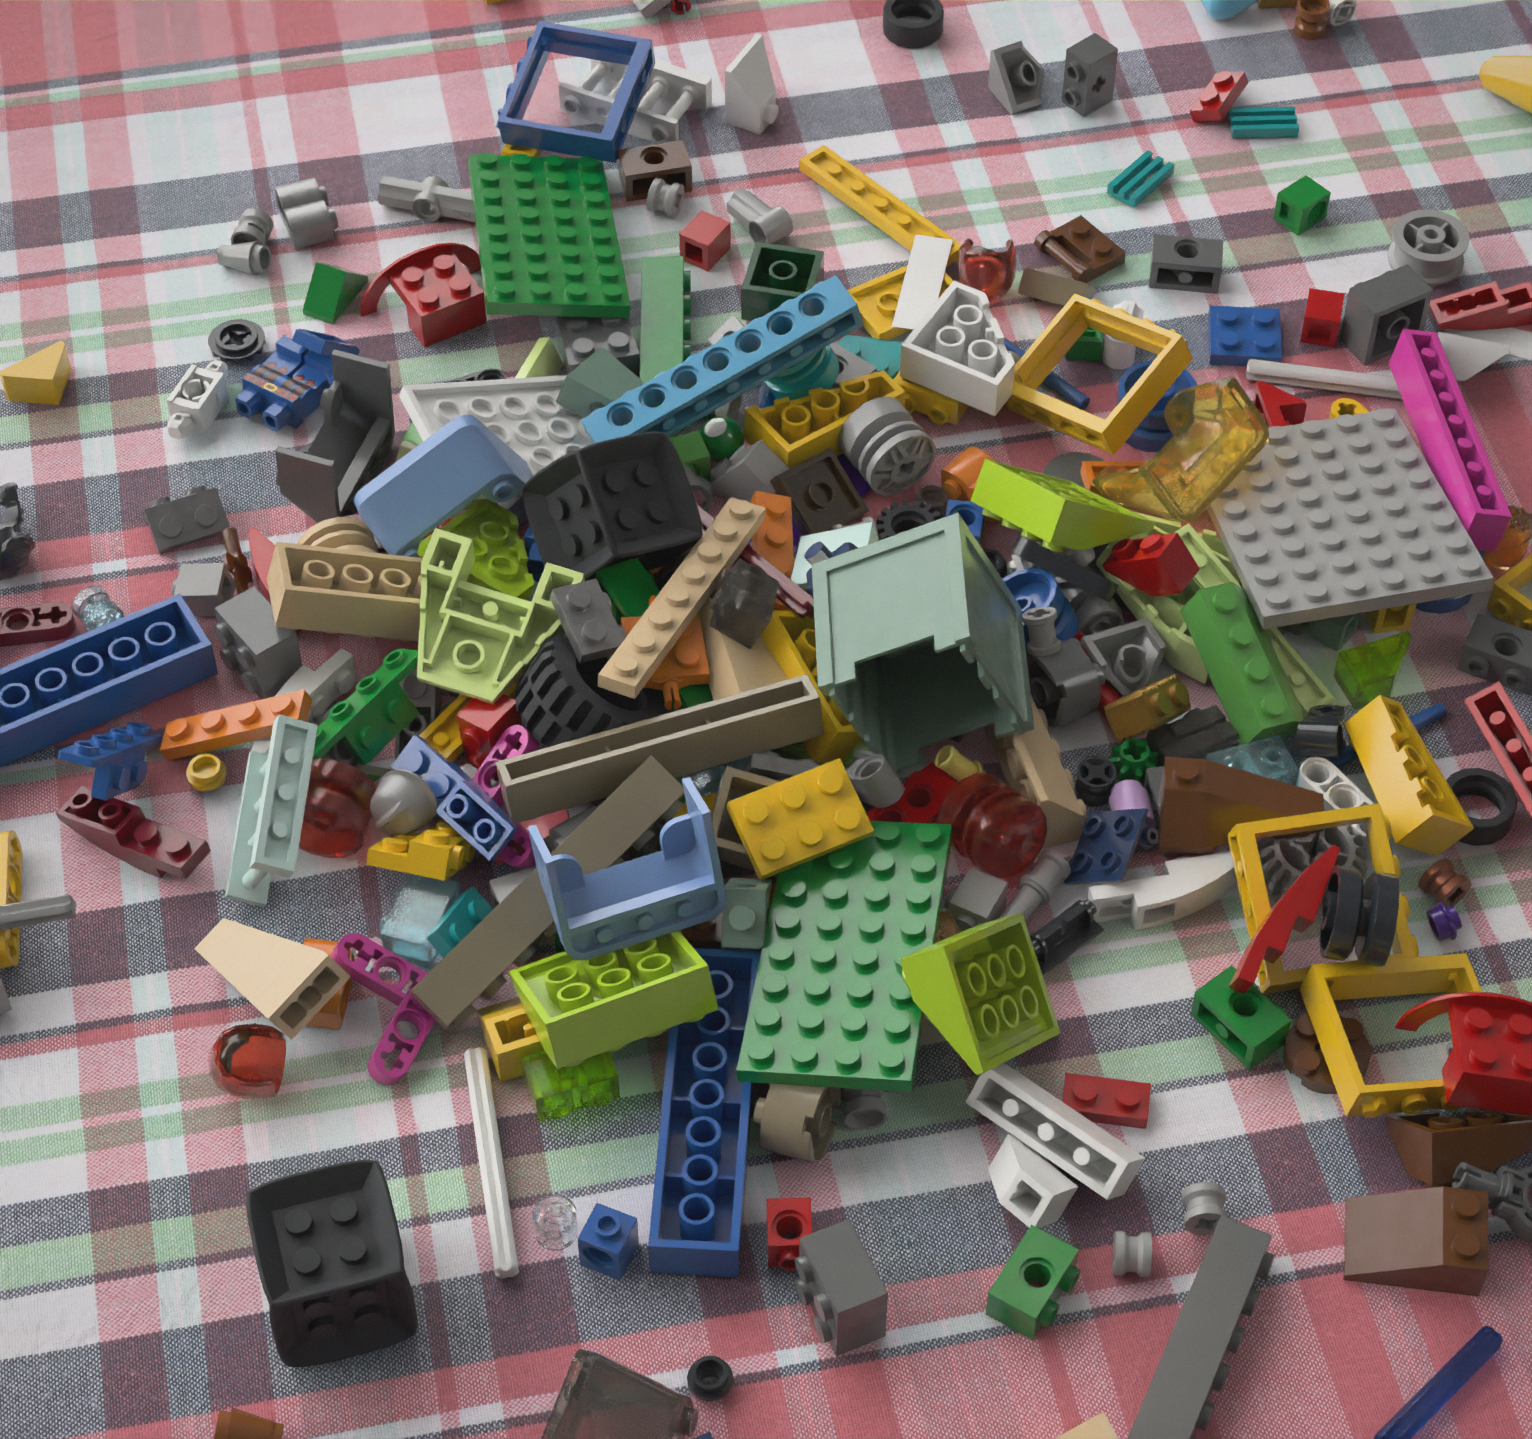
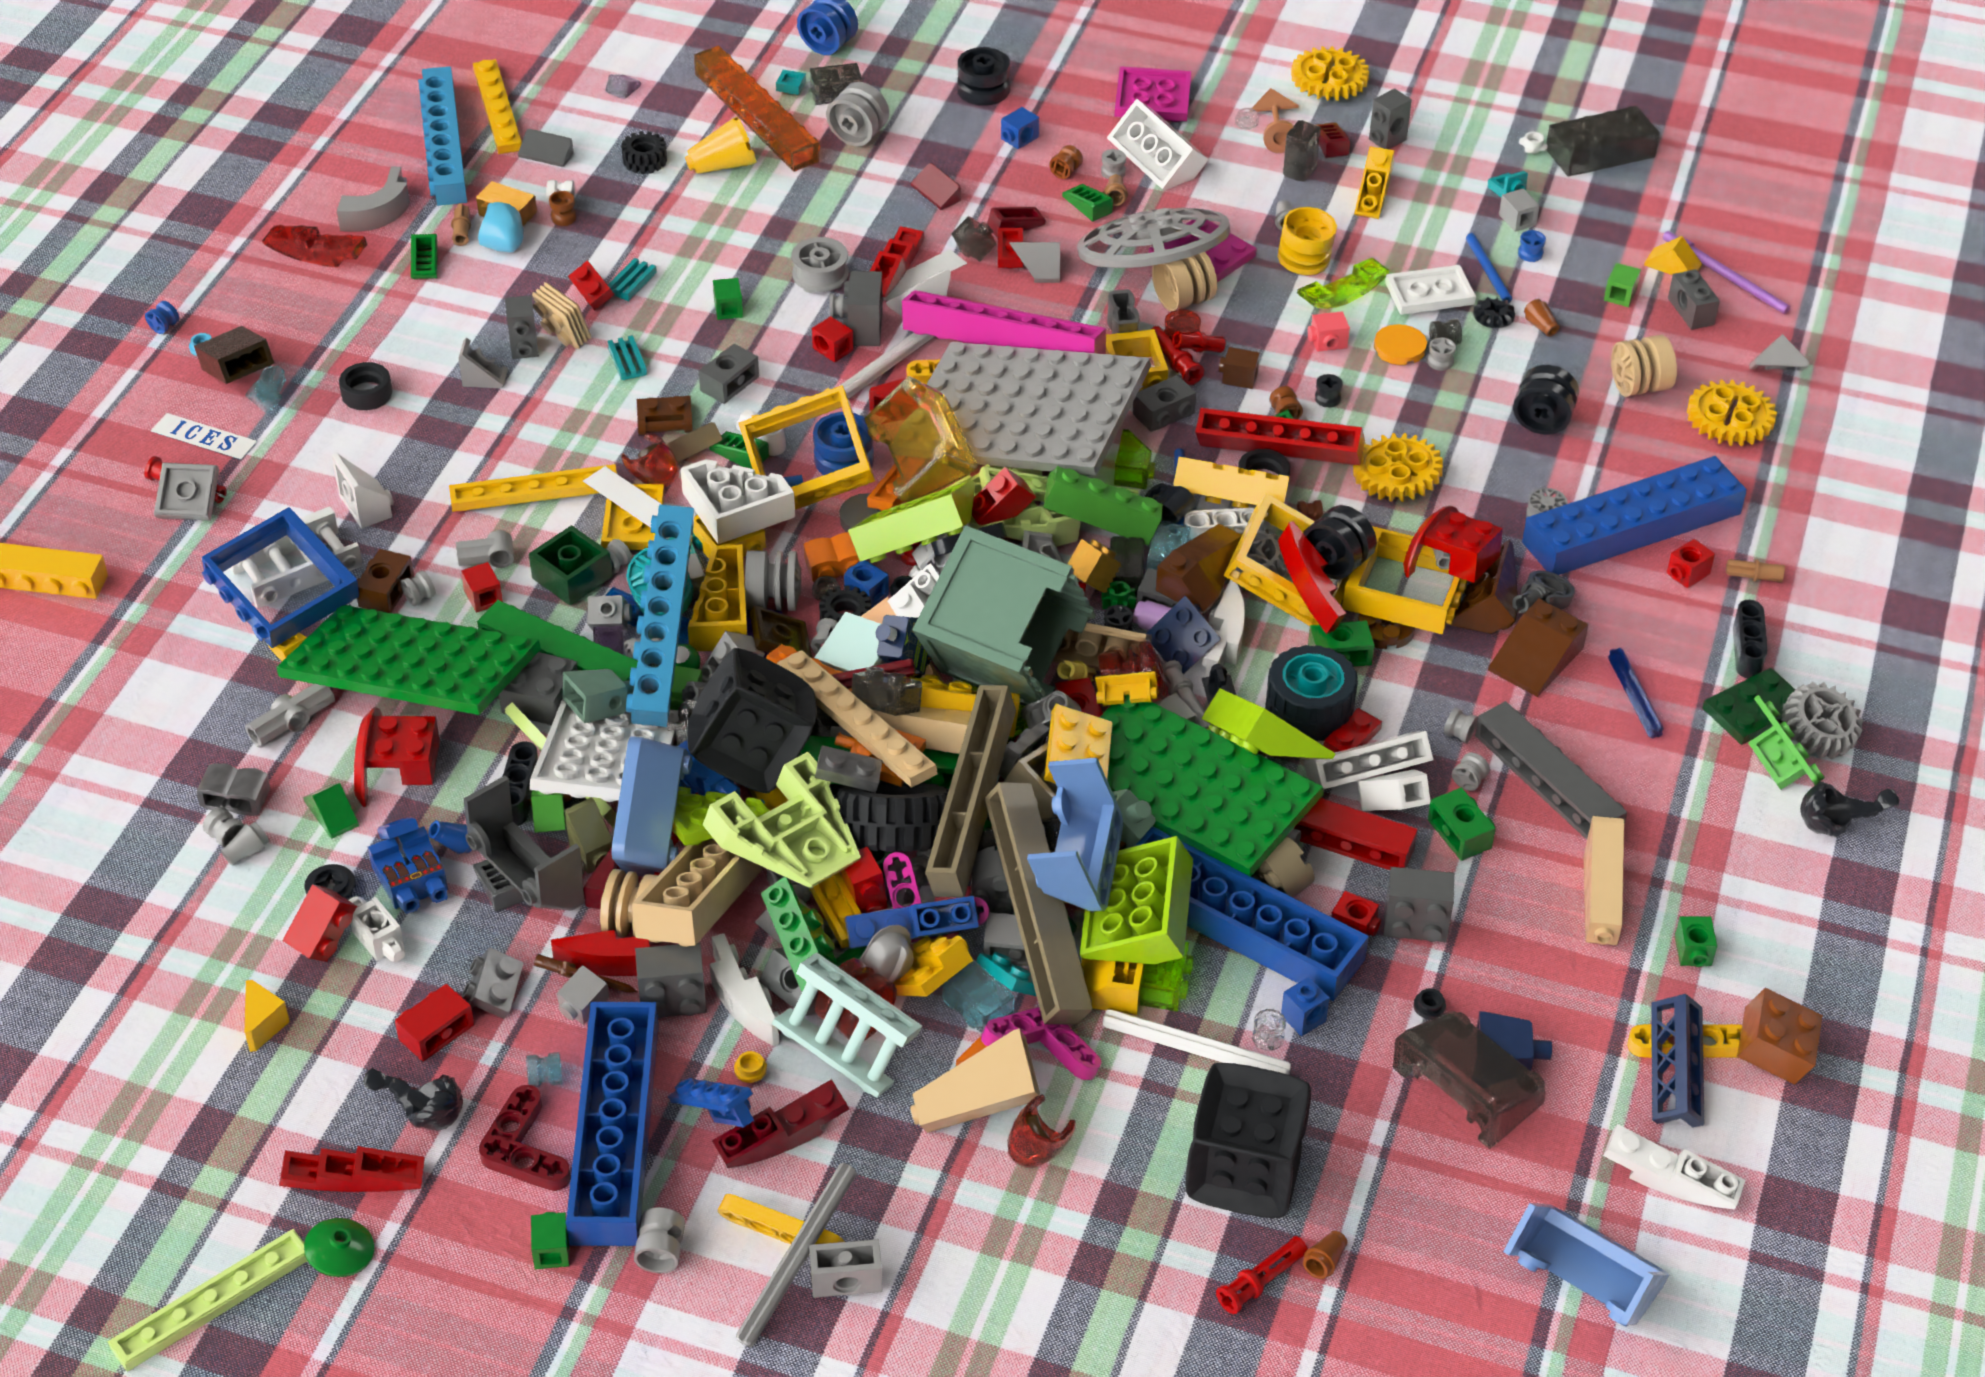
camera: 60 degrees left, 5 degrees down
(106, 500) = (434, 1022): none -> red brick
(160, 1375) = (1252, 1281): none -> red pin
(164, 352) = (319, 923): none -> brick
(231, 725) = (735, 1023): orange plate -> none
(929, 1157) = (1358, 834): none -> red brick
(950, 830) = (1140, 687): none -> yellow hinge
(1121, 1017) = (1312, 690): none -> black wheel
(1133, 93) = (560, 316): none -> tan brick
(1243, 335) = (808, 378): blue plate -> none
(1467, 31) = (644, 152): none -> black tyre

